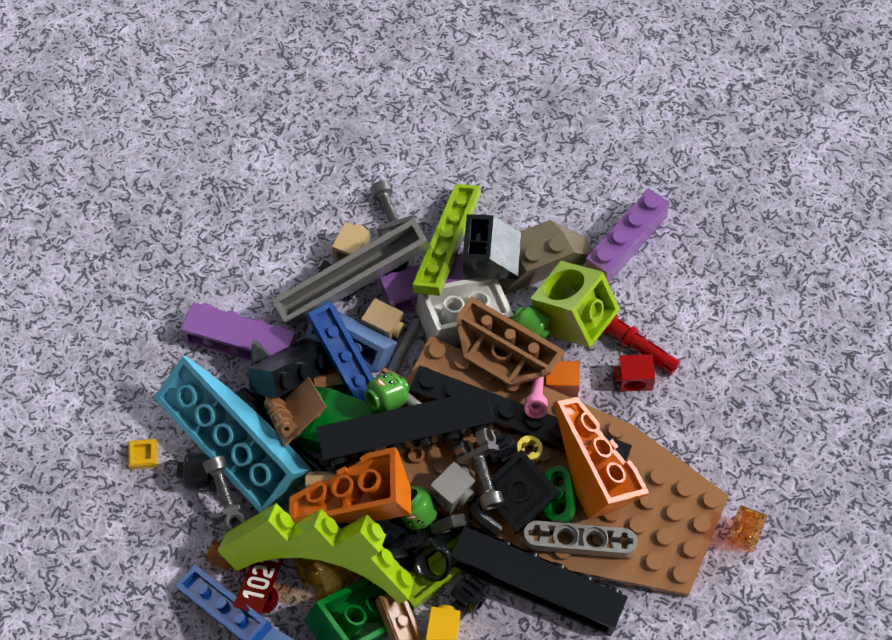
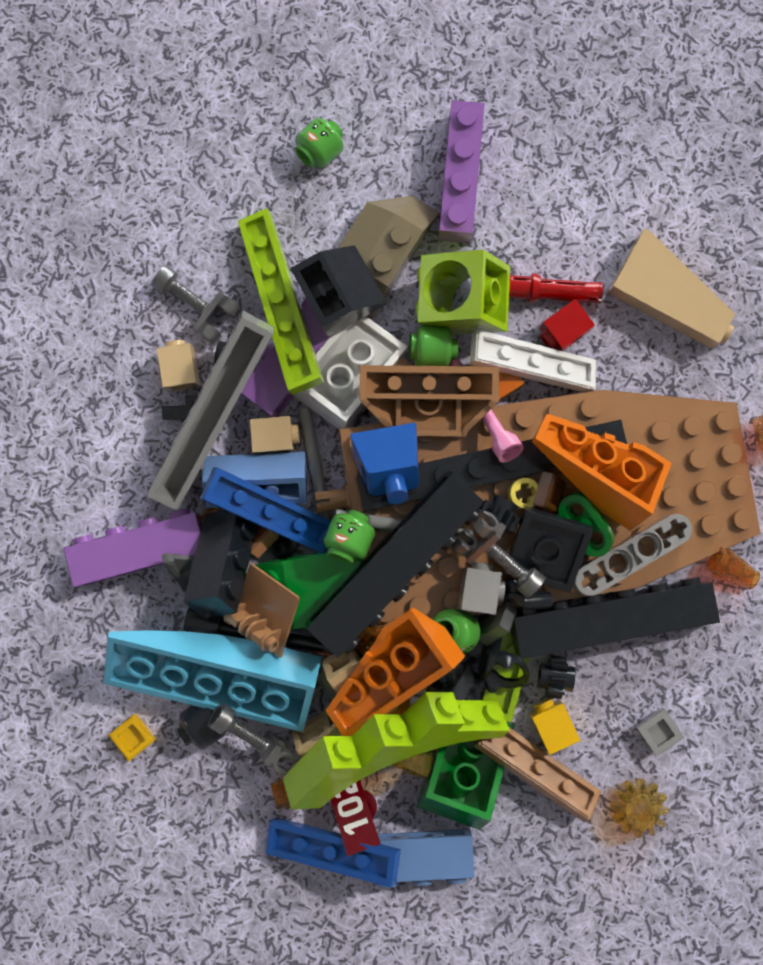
camera: 30 degrees left, 25 degrees up
(450, 363) = (388, 460): none -> blue torso
(542, 168) = (319, 143): none -> bright green head
(547, 455) = (549, 492): none -> reddish brown tile
(597, 377) = (533, 361): none -> white tile
(651, 605) = (732, 568): none -> clear orange cone
(725, 394) = (671, 293): none -> tan slope

